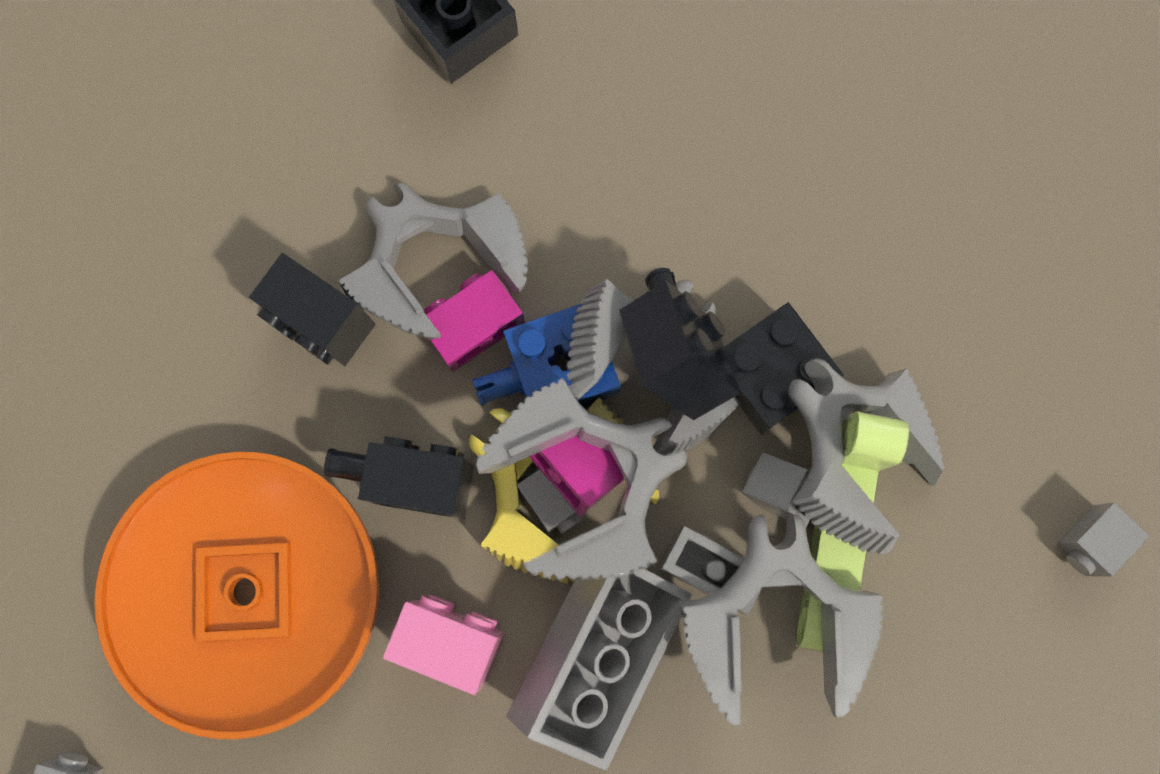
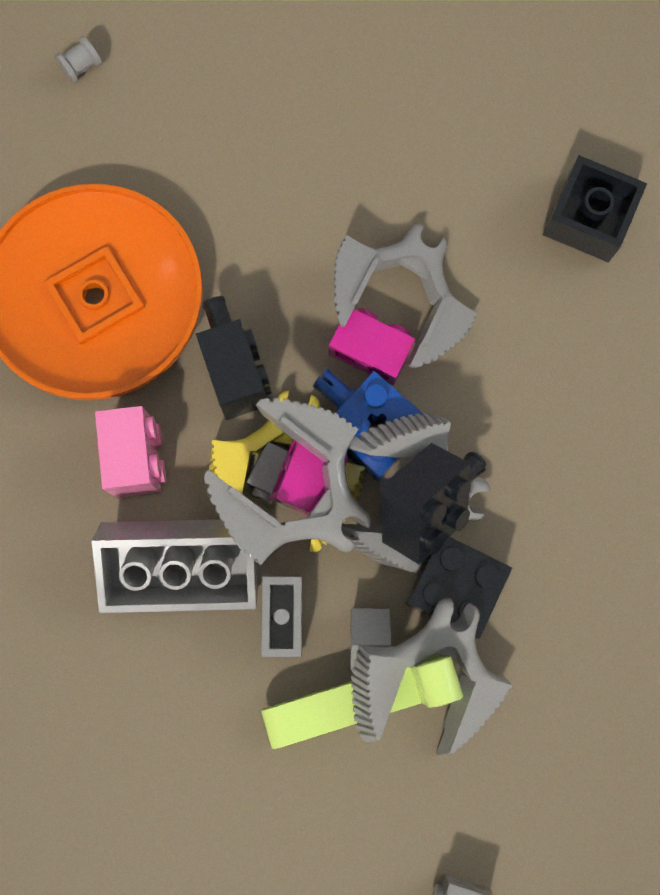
camera: 55 degrees right, 0 degrees up
(306, 305) = (312, 229): black brick -> none
(848, 620) = (297, 734): light grey piece -> none

